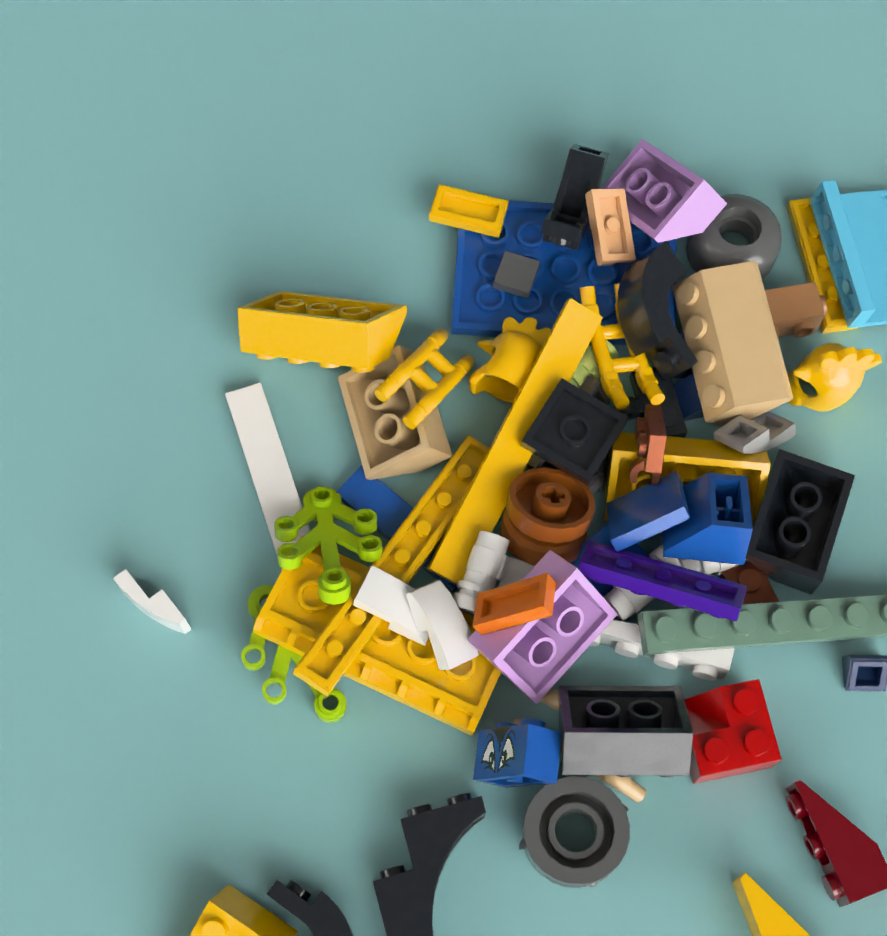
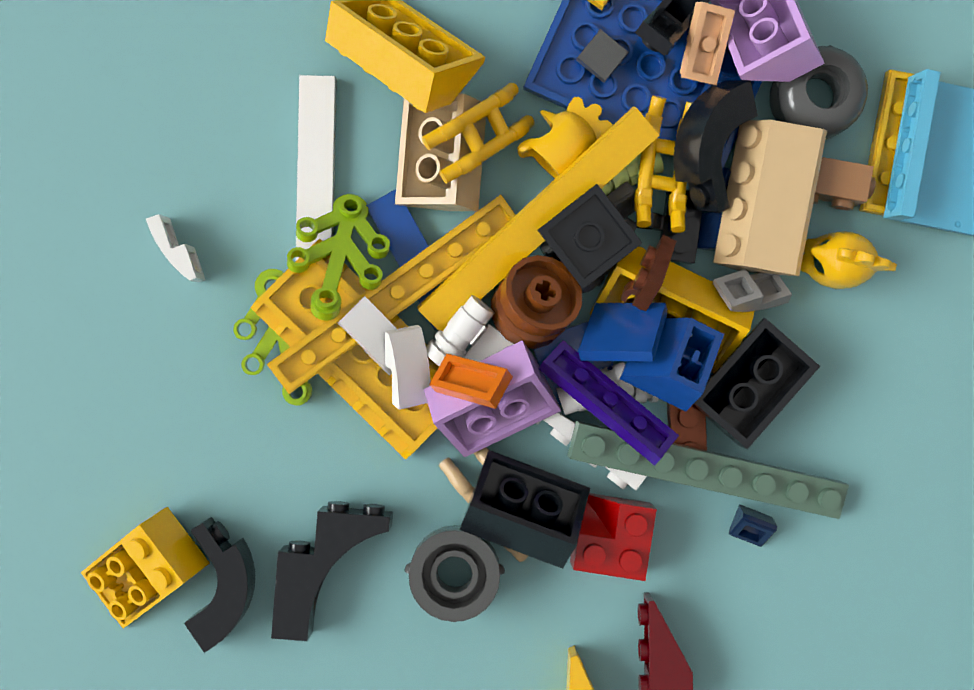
camera: 20 degrees right, 20 degrees up
(518, 754) = (431, 496): blue brick -> none

